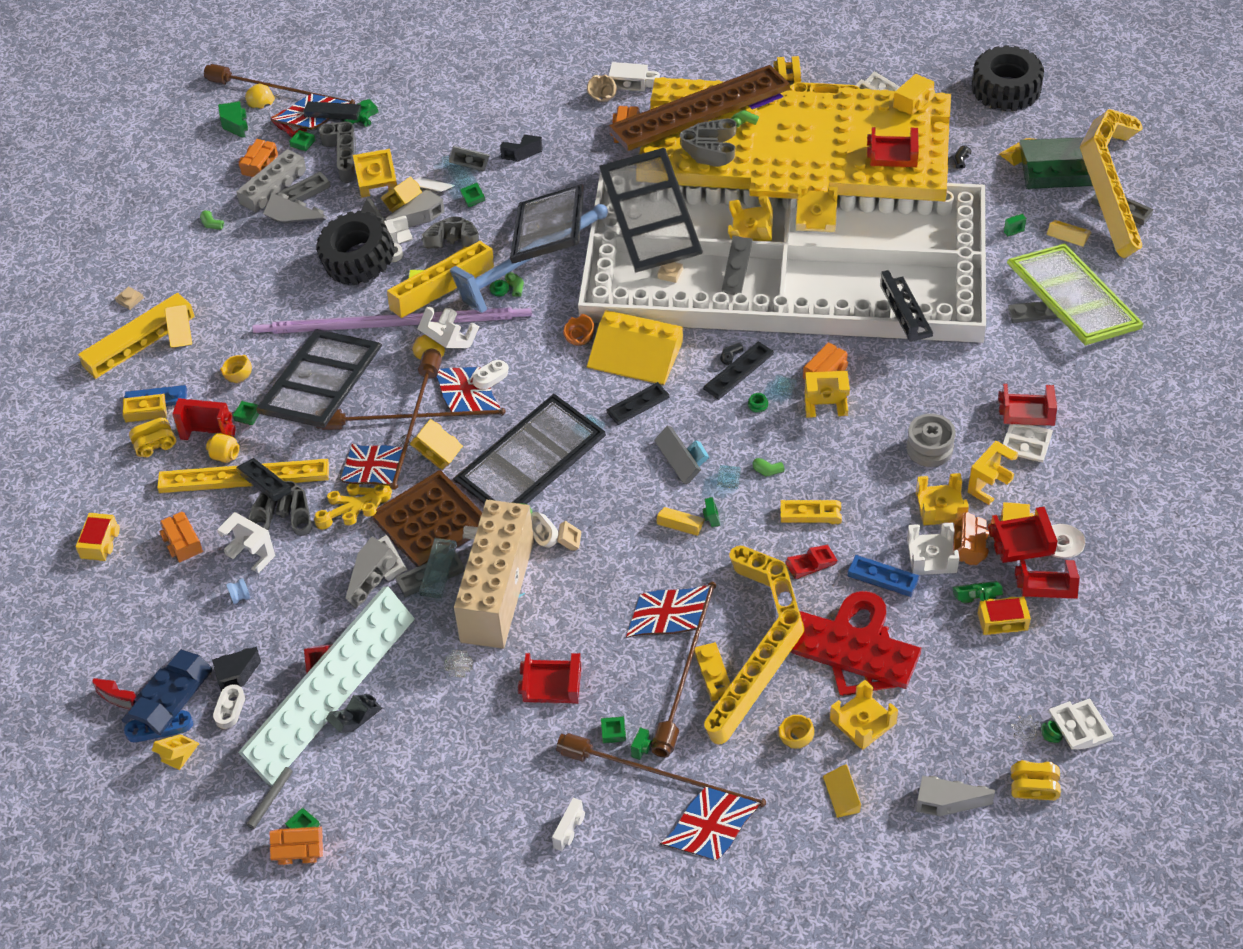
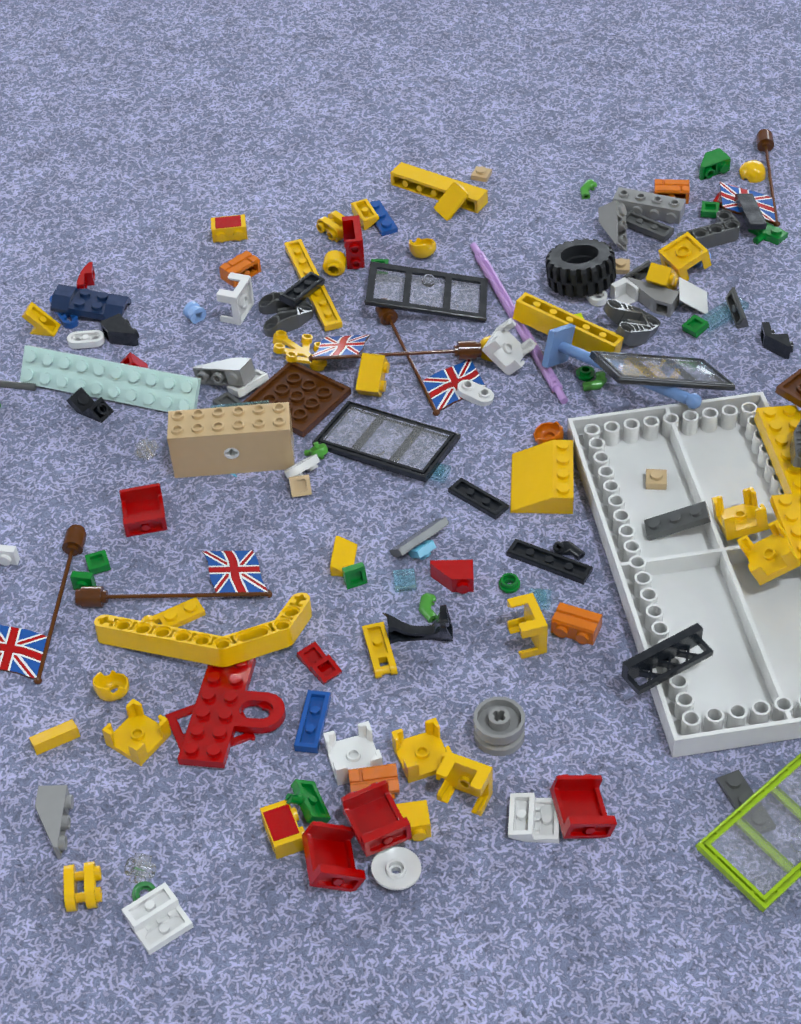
camera: 75 degrees right, 5 degrees down
(650, 210) = (710, 432): door -> none
(739, 436) = (453, 574): none -> red slope
(803, 459) = (440, 630): none -> black animal

